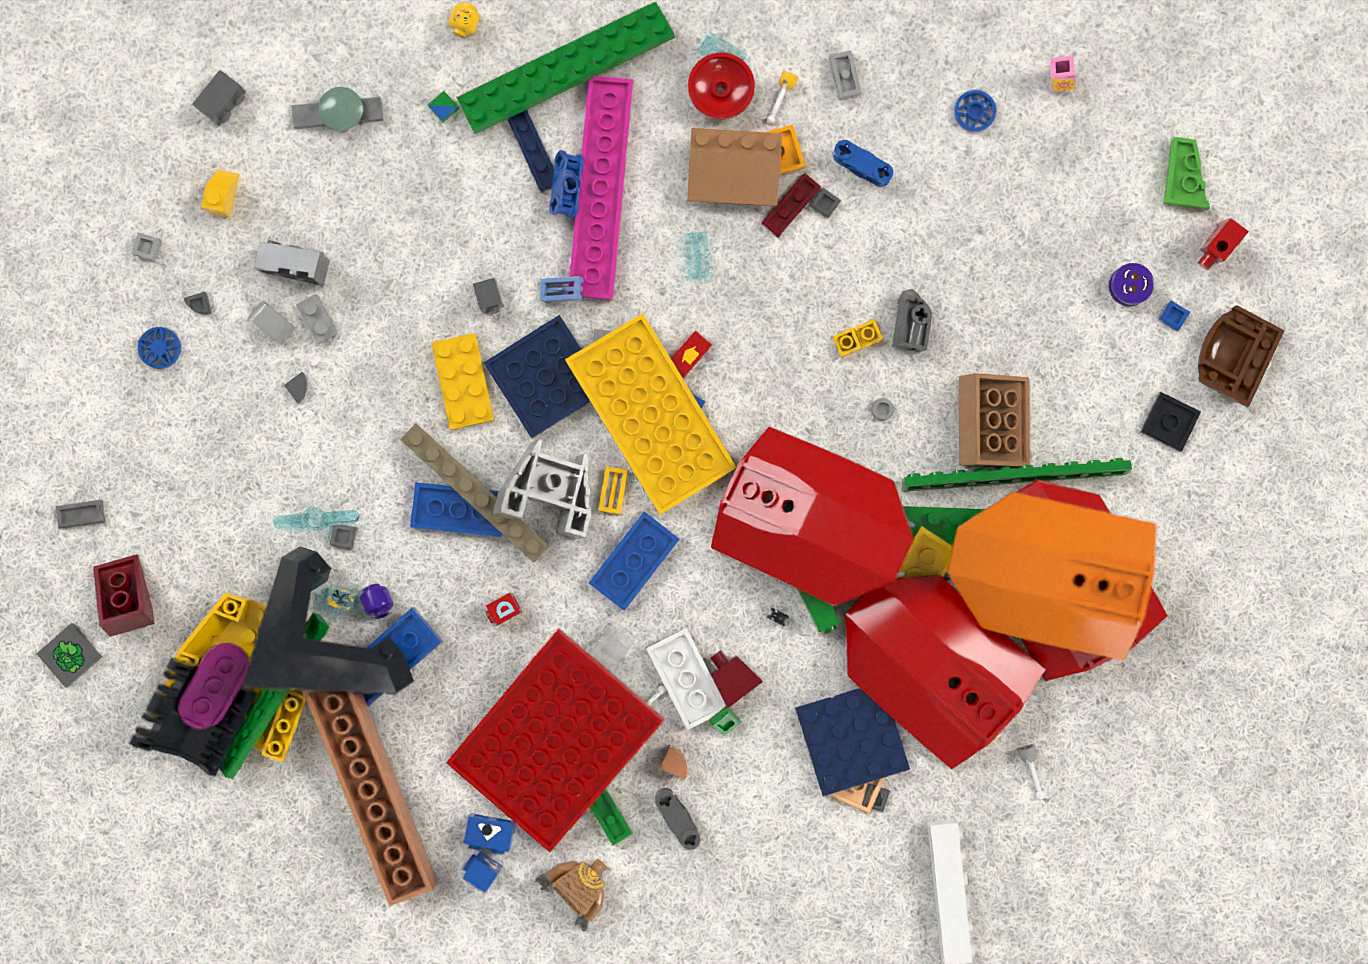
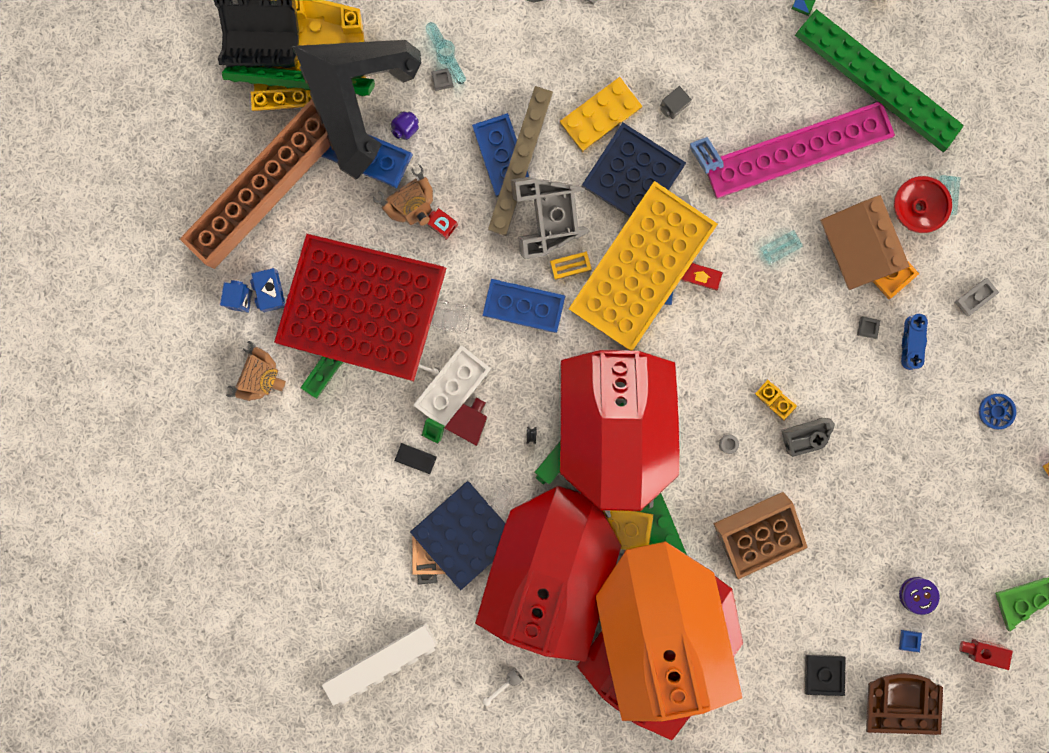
camera: 65 degrees right, 0 degrees up
(213, 686) = (282, 30): magenta tile -> none
(341, 598) = (395, 98): clear light blue brick -> none
(464, 633) = (410, 202): none -> medium nougat torso
(532, 150) = (802, 86): dark blue tile -> none
(568, 171) = (777, 126): blue piece -> none
(674, 762) = (384, 406): nougat brick -> none
(677, 818) = (342, 428): dark grey piece -> none
(746, 753) = (415, 458): none -> black tile
(787, 82) = (950, 255): hinge -> none
(791, 205) = (854, 302): dark red tile -> none
(1024, 474) = (729, 576): green plate -> none

